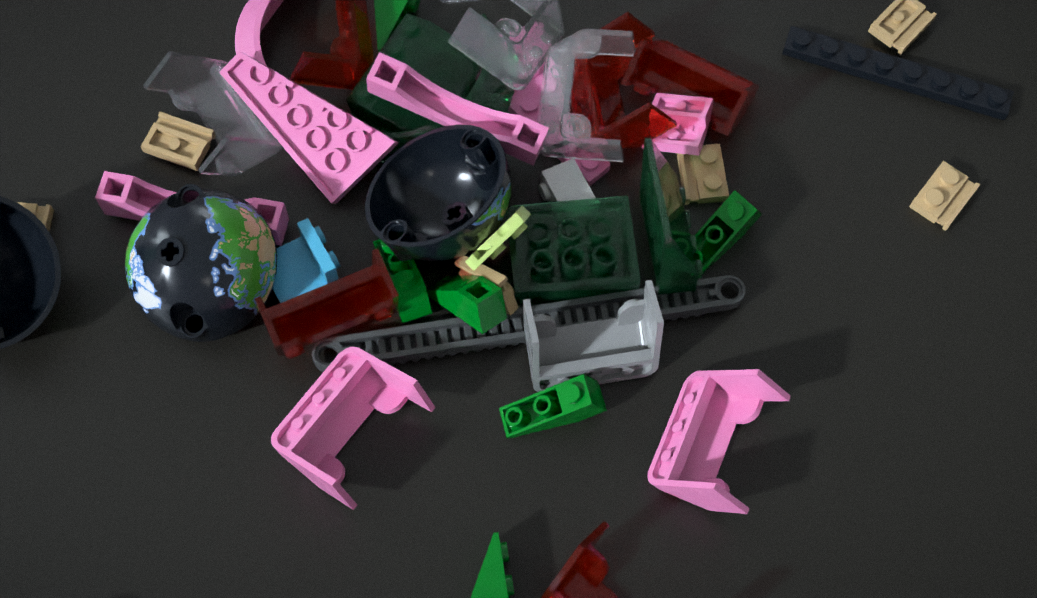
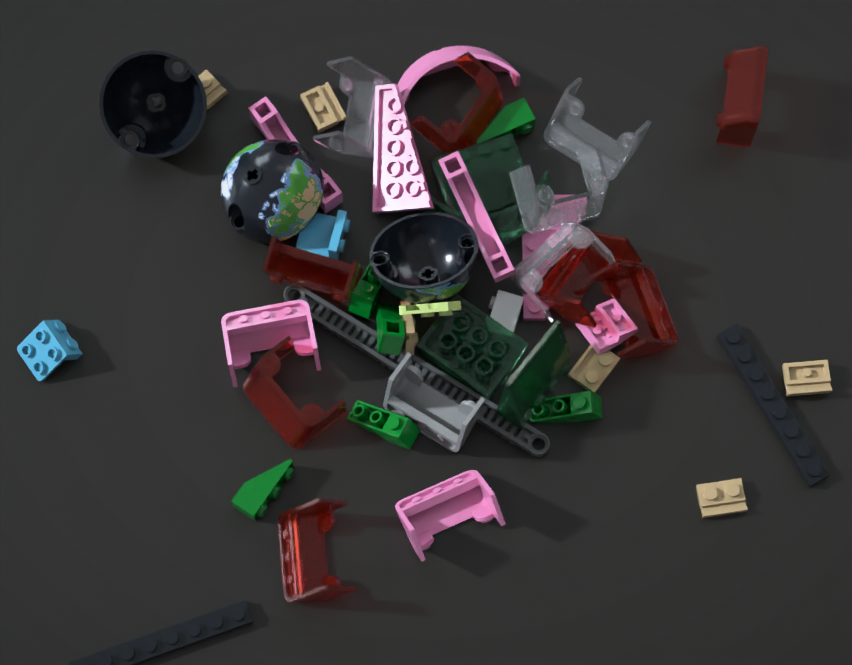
camera: 45 degrees right, 5 degrees up
(419, 487) = (292, 425): none -> clear red windscreen

